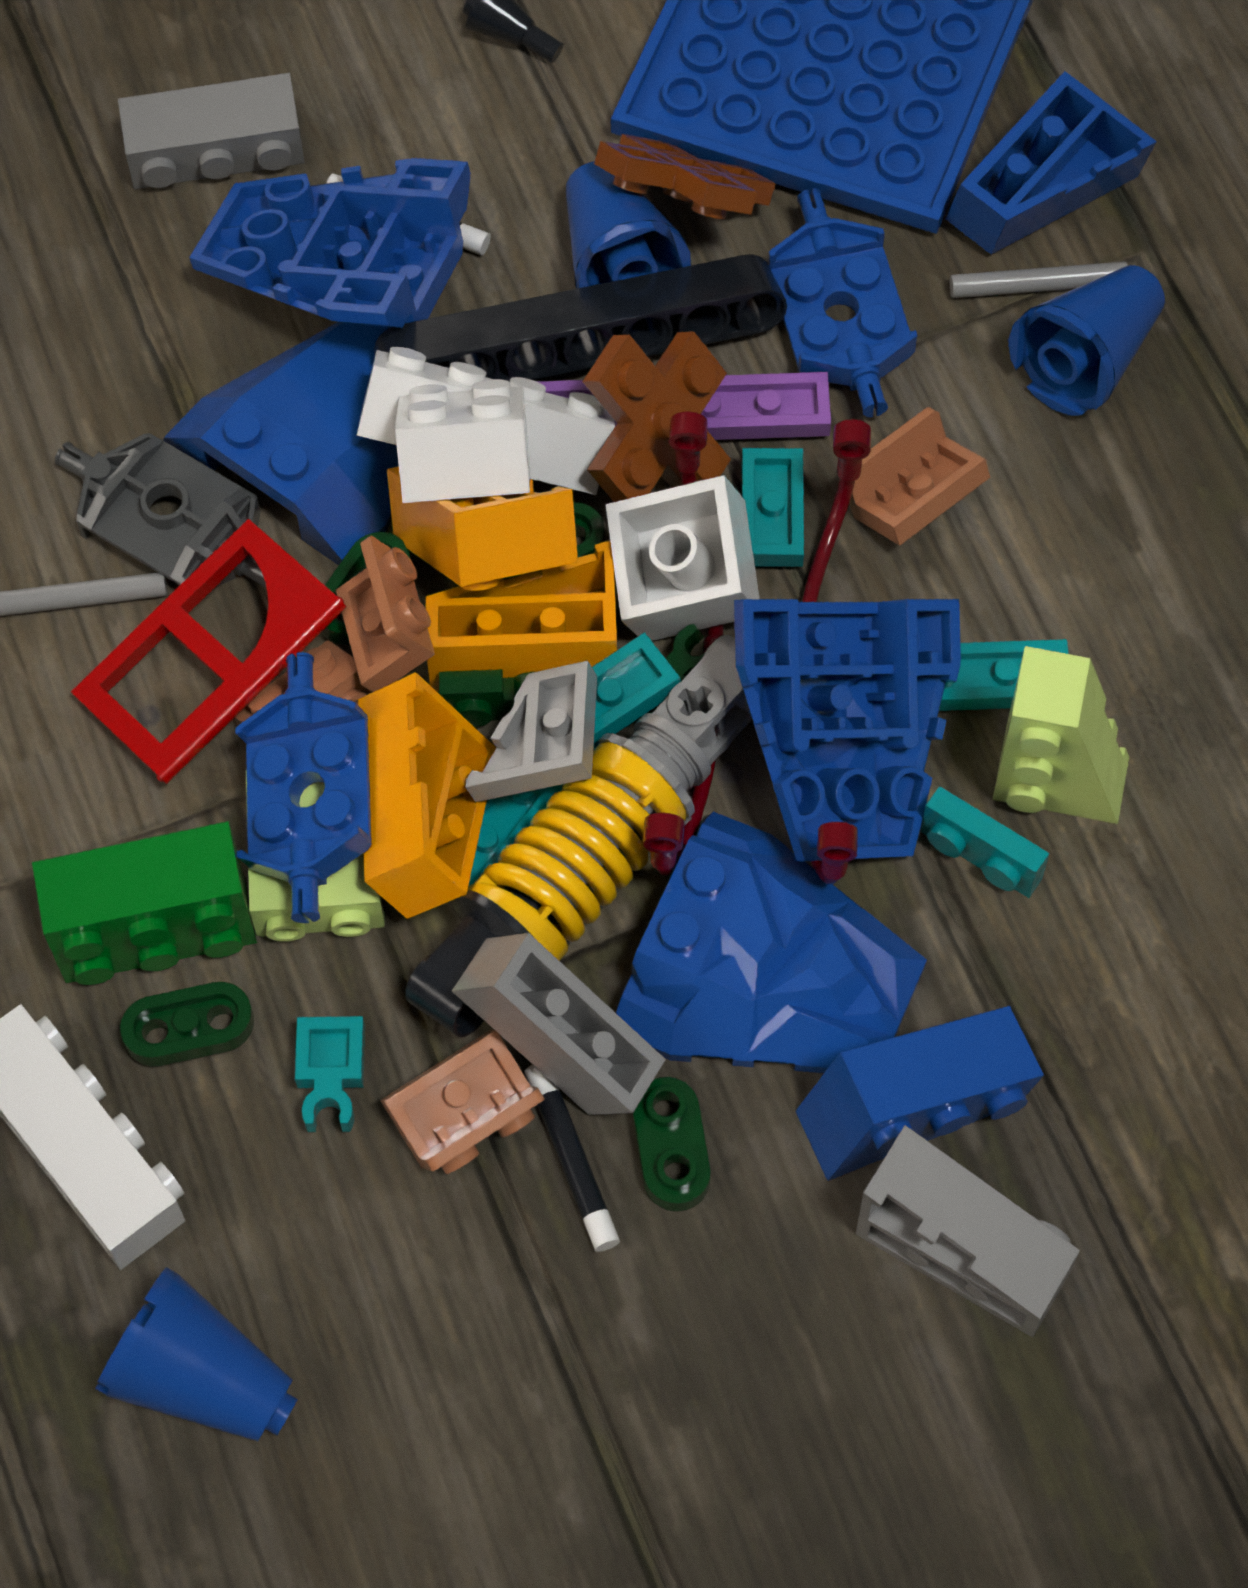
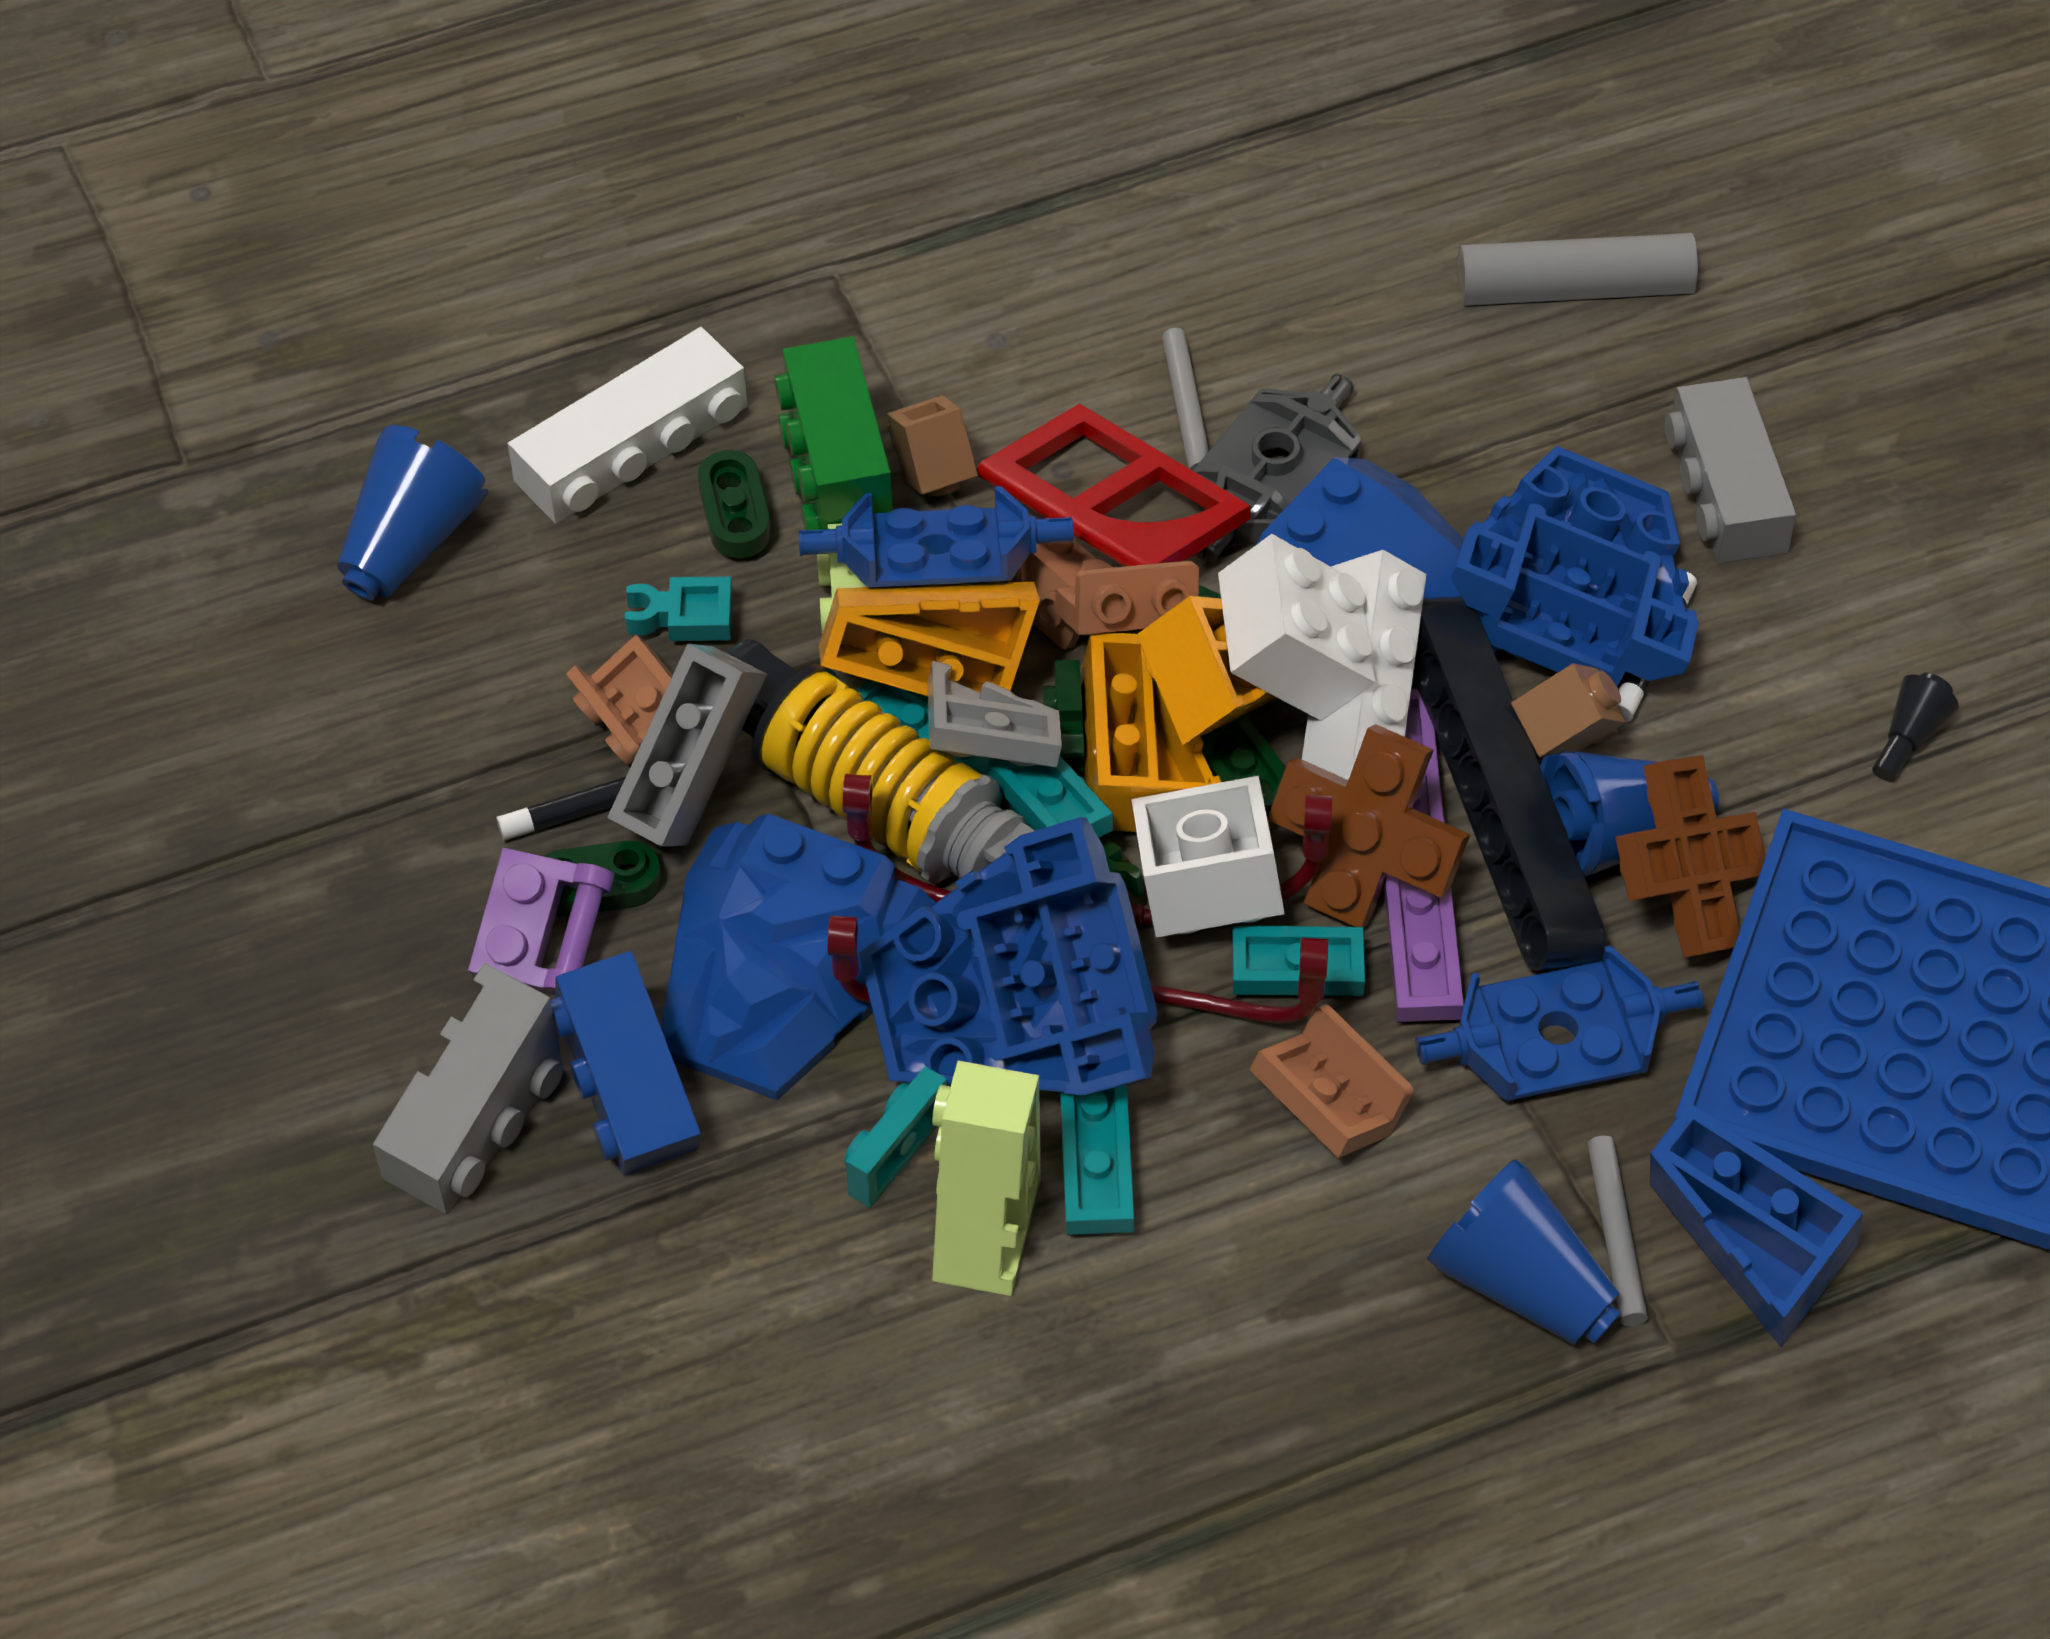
camera: 90 degrees right, 10 degrees down
(132, 808) = (932, 446): none -> medium nougat brick
(518, 258) = (1570, 710): none -> medium nougat brick
(738, 1204) = (523, 914): none -> medium lavender plate

